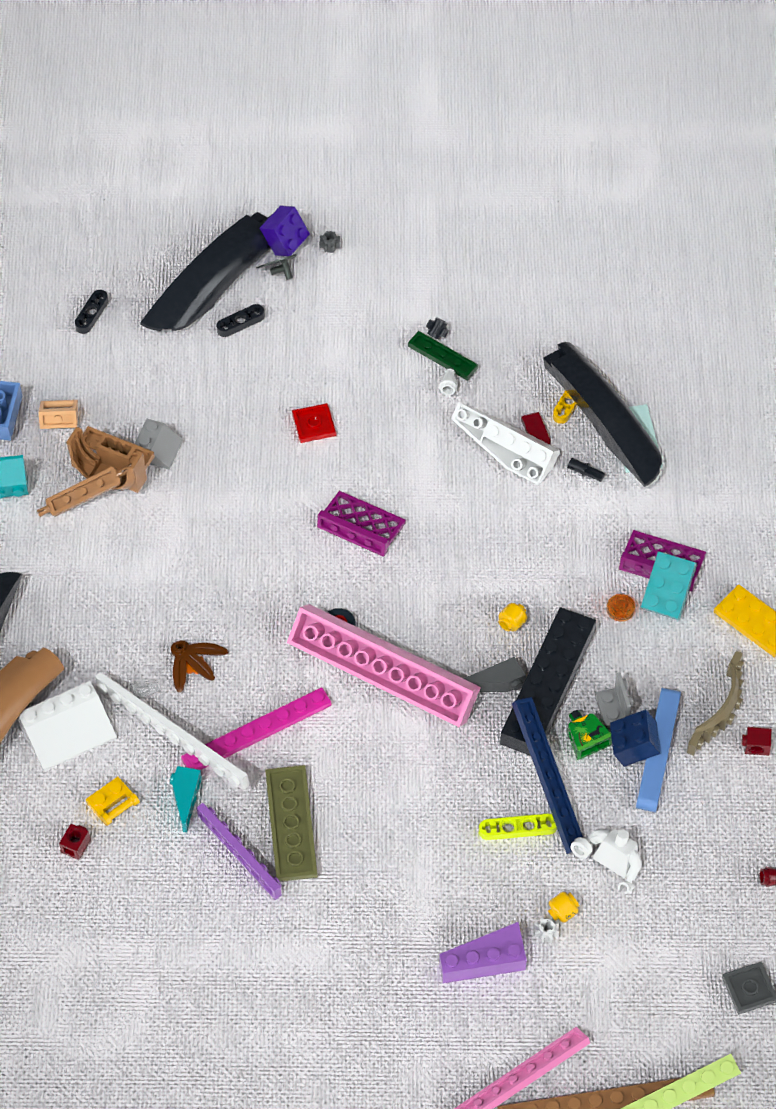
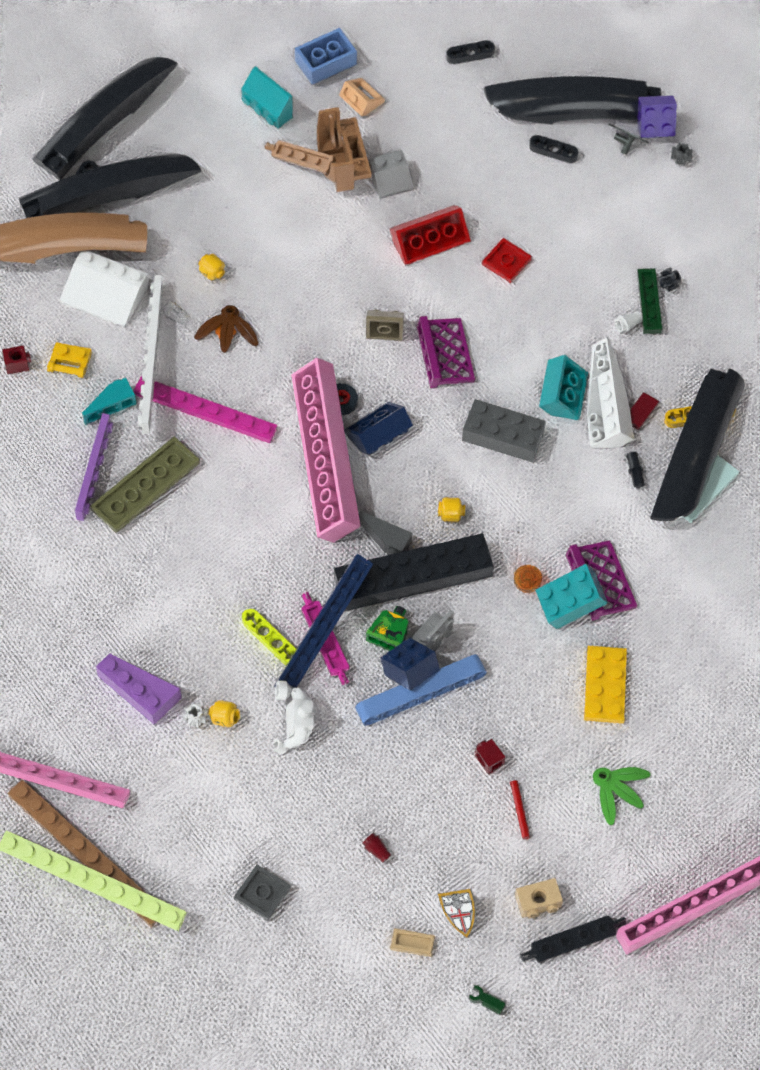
camera: 50 degrees right, 5 degrees up
(124, 631) = (211, 267): none -> yellow head
(241, 456) = (430, 234): none -> red slope
(299, 544) = (384, 325): none -> dark tan slope
(391, 613) = (379, 427): none -> dark blue slope
(470, 466) = (563, 388): none -> teal slope
(473, 531) = (503, 430): none -> dark grey brick
(577, 791) = (331, 650): none -> dark pink plate
(725, 715) = (499, 714): dark tan piece -> none

